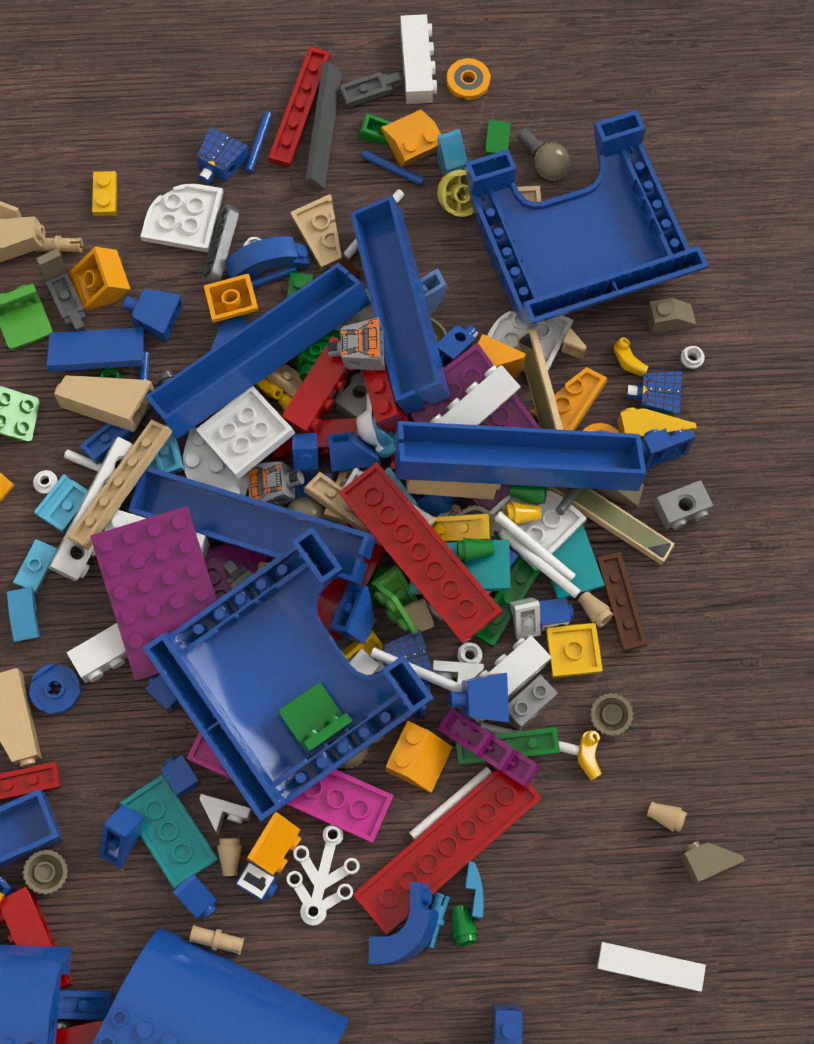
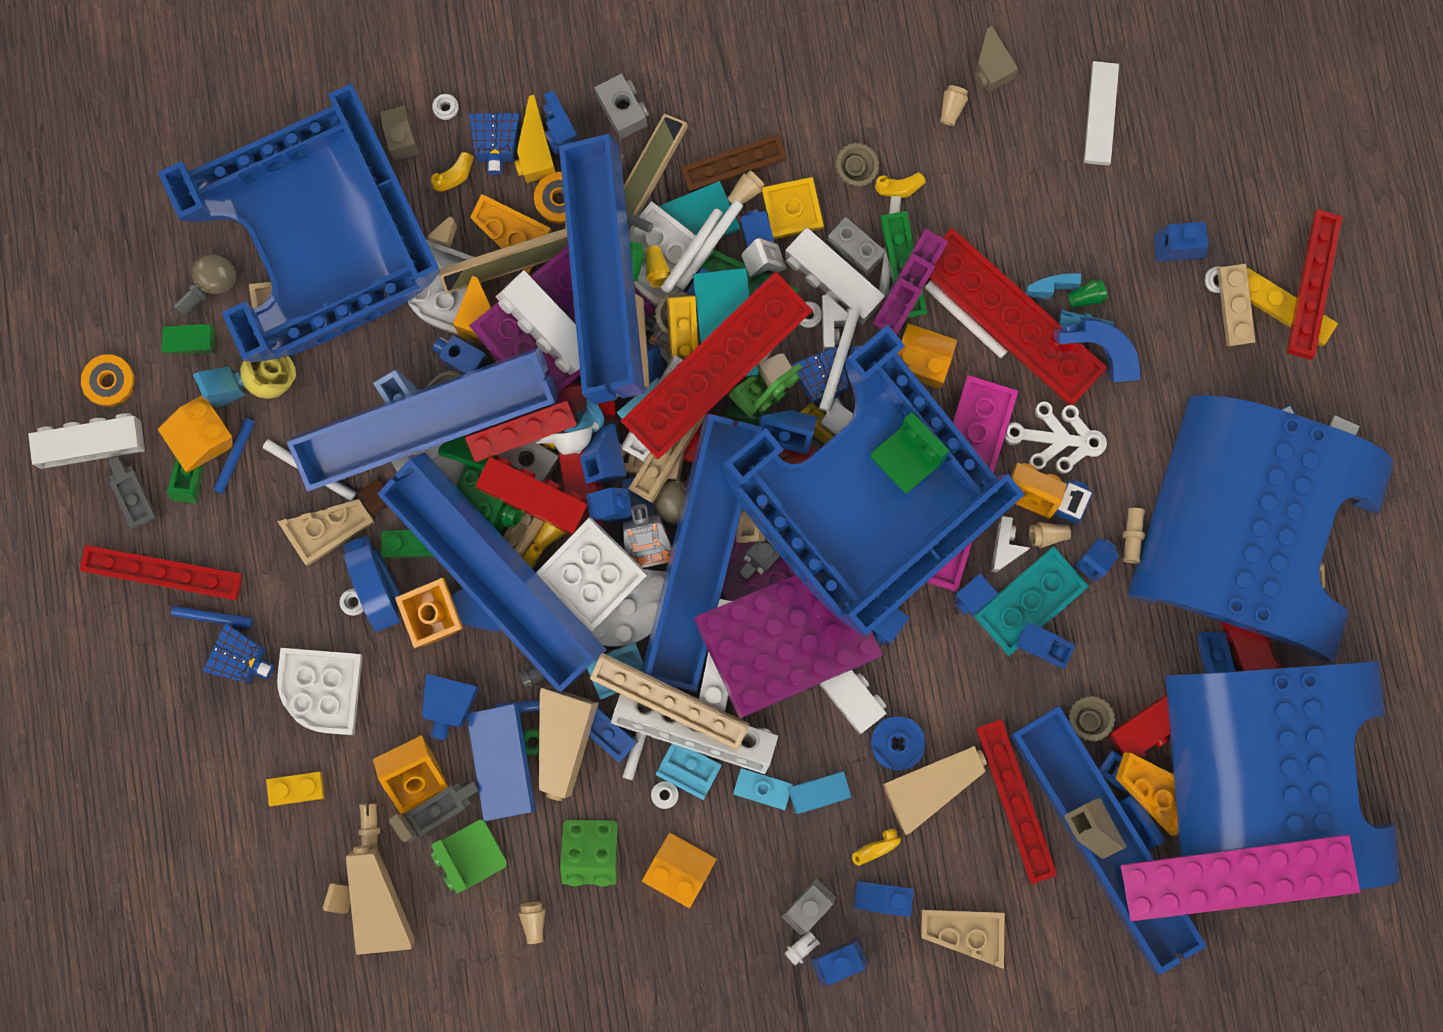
camera: 90 degrees left, 10 degrees up
(220, 244) = (324, 638): dark grey beam -> none
(323, 126) = (185, 541): dark grey tile -> none
(360, 345) = (490, 448): torso -> none
(472, 549) = (710, 310): green cone -> none
(483, 697) = (862, 287): blue torso -> none

